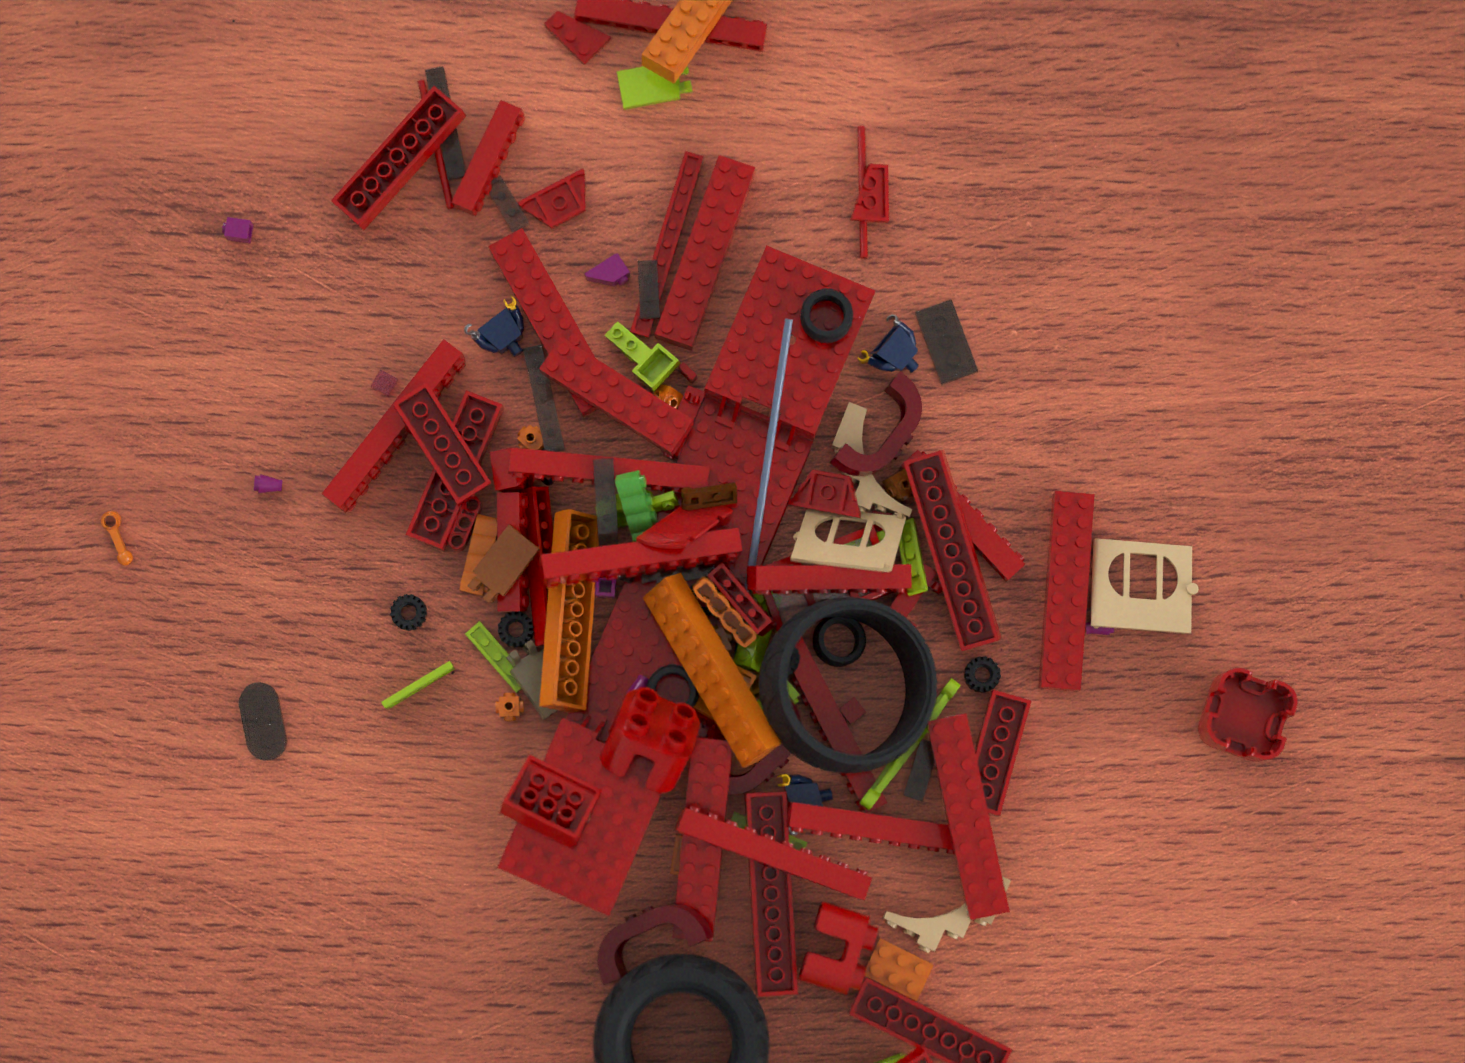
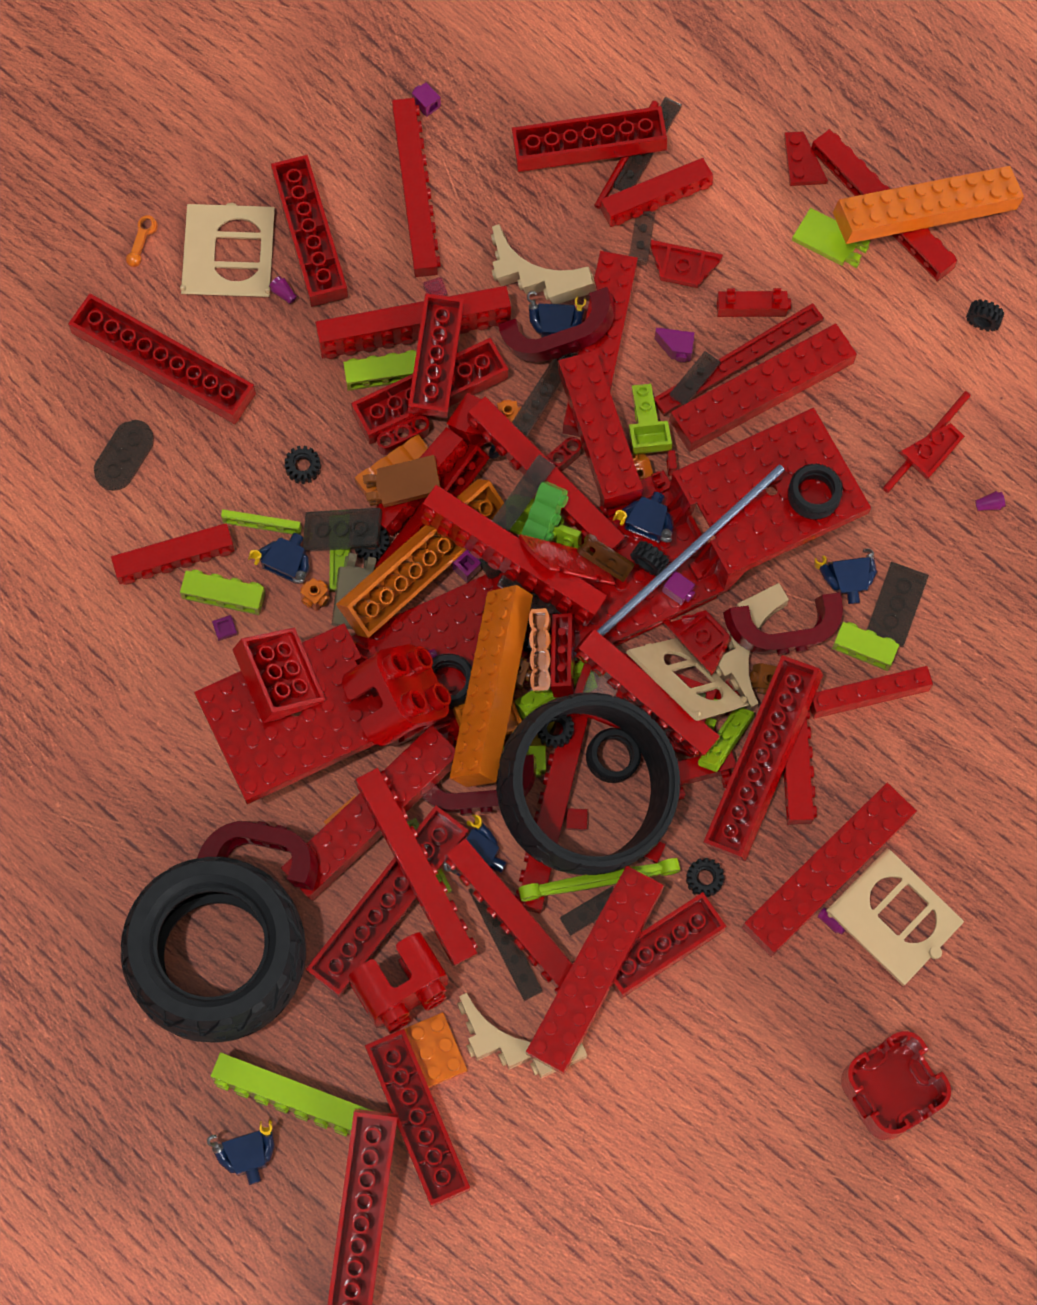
camera: 40 degrees right, 10 degrees down
(176, 513) = (199, 250): none -> tan door
(223, 621) = (162, 358): none -> red brick
(245, 418) = (309, 230): none -> red brick
(297, 314) = (414, 187): none -> red brick
(373, 767) = (172, 554): none -> red brick
(402, 485) = (378, 371): none -> lime brick
(438, 765) = (222, 592): none -> lime brick
(462, 698) = (284, 558): none -> dark blue torso
(463, 790) = (224, 628): none -> magenta tile
(481, 302) = (557, 284): none -> tan arch
(486, 638) = (342, 529): none -> clear smoke tile
(528, 344) = (564, 341): none -> dark red arch
(604, 434) = (566, 455): none -> red beam
(640, 189) = (753, 303): none -> red brick
(712, 436) = (647, 518): none -> dark blue torso
(741, 467) = (649, 558): none -> black tyre
(782, 471) = (679, 588): none -> magenta brick
(824, 52) = (985, 315): none -> black tyre
(900, 855) = (511, 955): none -> clear smoke tile
(950, 201) = (993, 501): none -> magenta cone
(951, 395) = (865, 646): none -> lime brick
(985, 428) = (871, 692): none -> red brick

